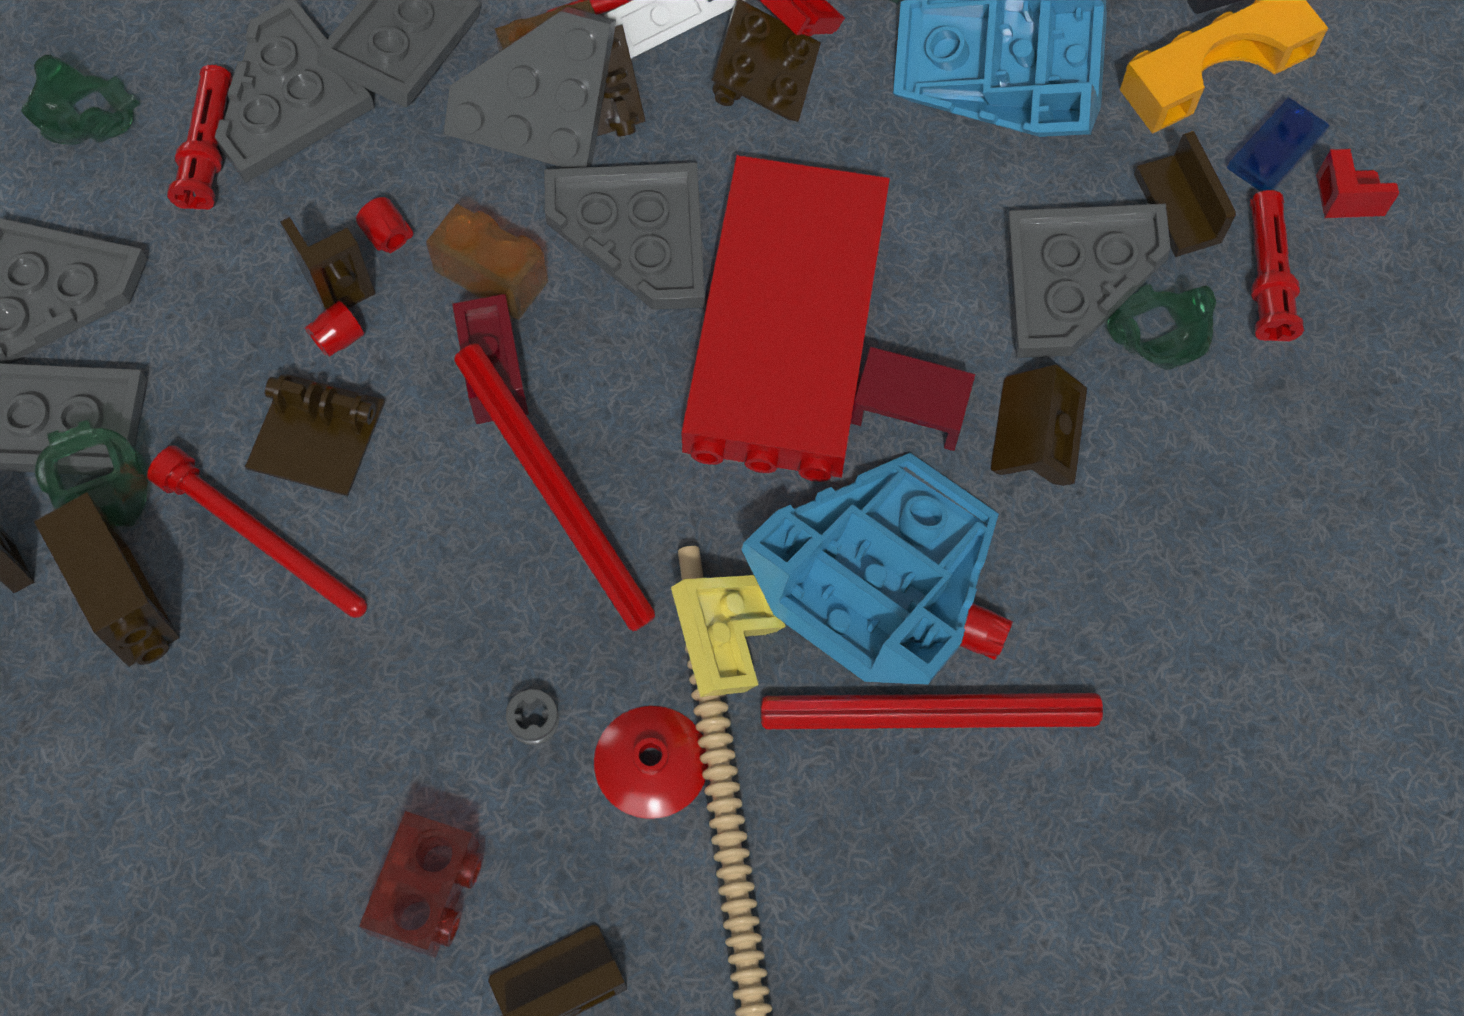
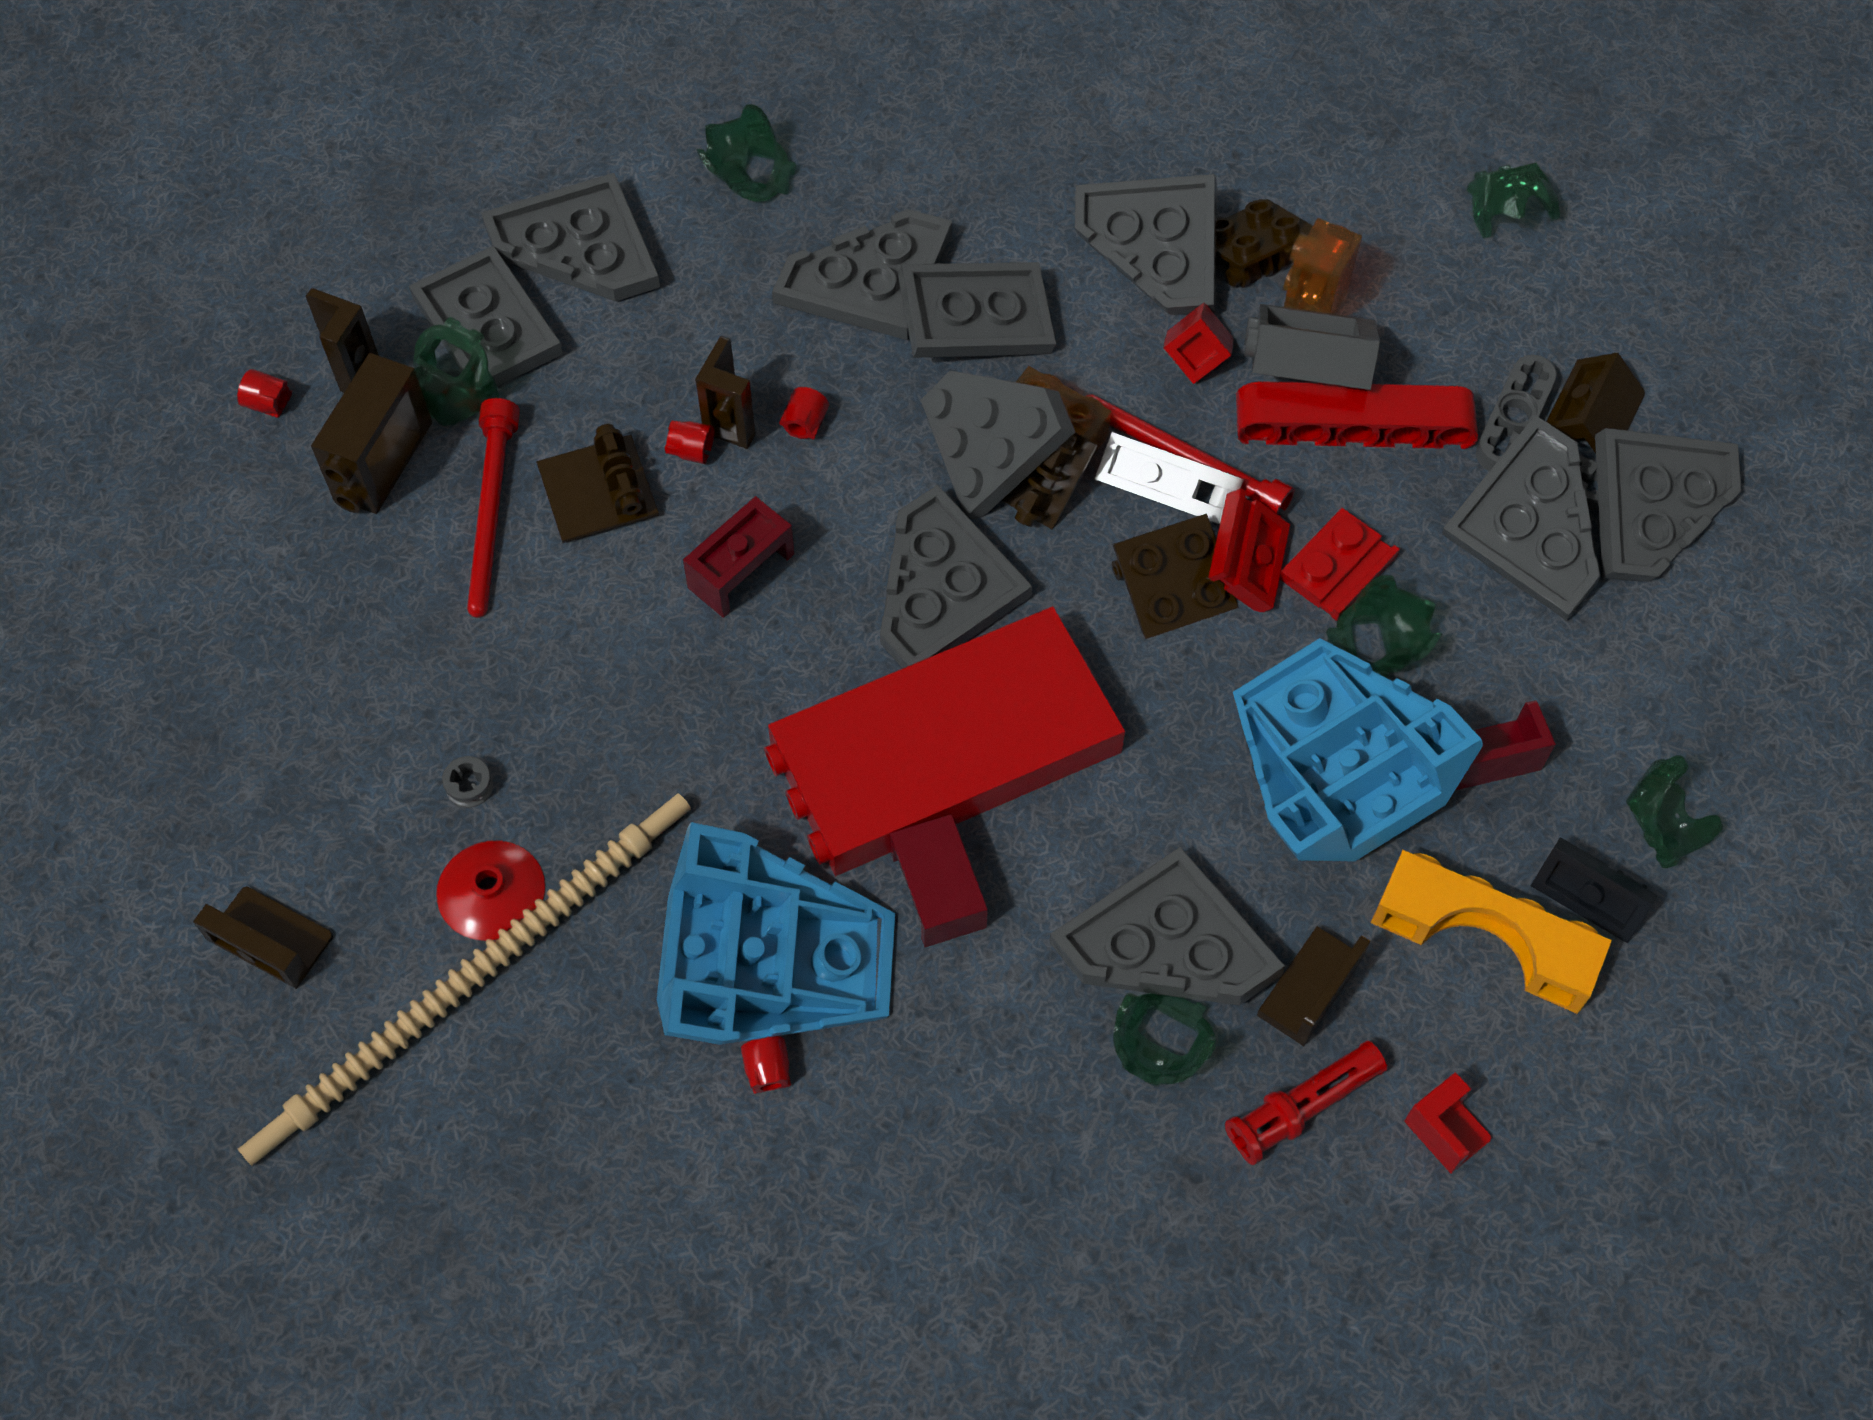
camera: 55 degrees right, 5 degrees down
(198, 156) = (767, 258): red pin -> none
(406, 882) = (280, 780): clear red brick -> none
(487, 259) = (822, 499): clear orange brick -> none
(554, 487) = (655, 669): red axle -> none
(714, 622) = (617, 850): light yellow plate -> none
(931, 711) = (673, 1072): red axle -> none
(1040, 425) = (995, 1000): dark brown panel -> none
(1278, 146) = (1444, 1035): clear blue plate -> none

